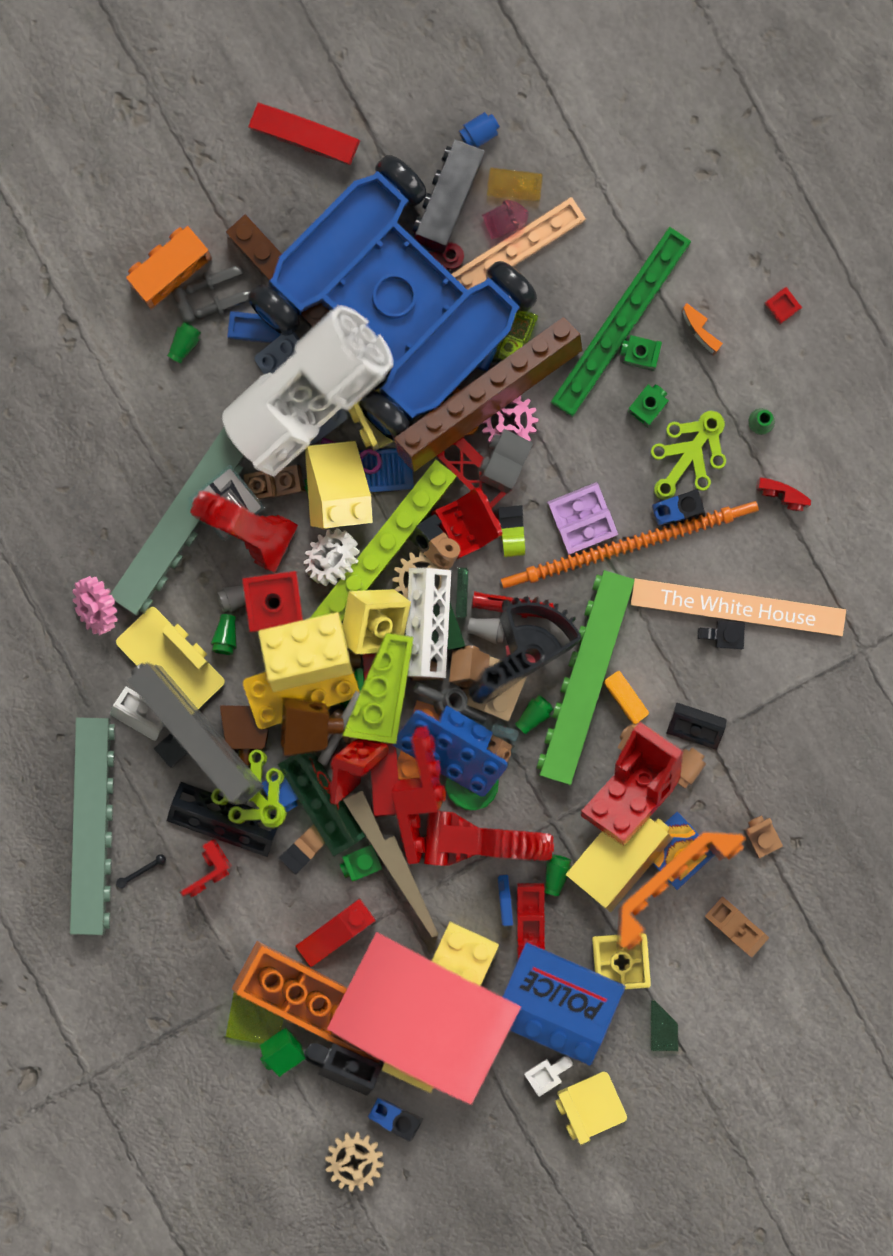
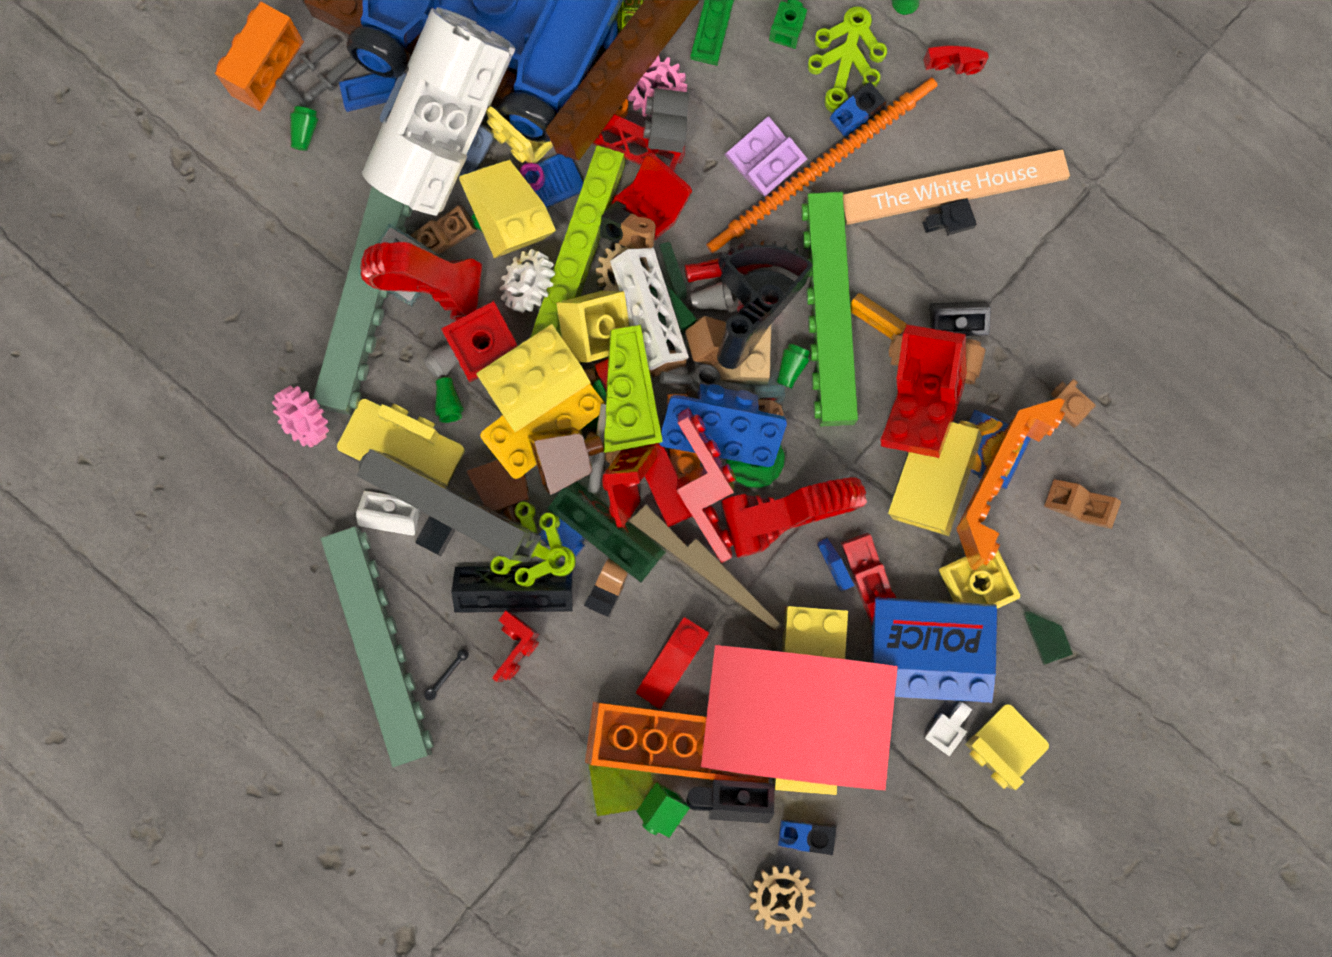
camera: 10 degrees left, 5 degrees down
(360, 863) = (671, 582): green bracket -> none
(513, 530) = (703, 197): leg -> none
(556, 874) = (877, 518): green cone -> none

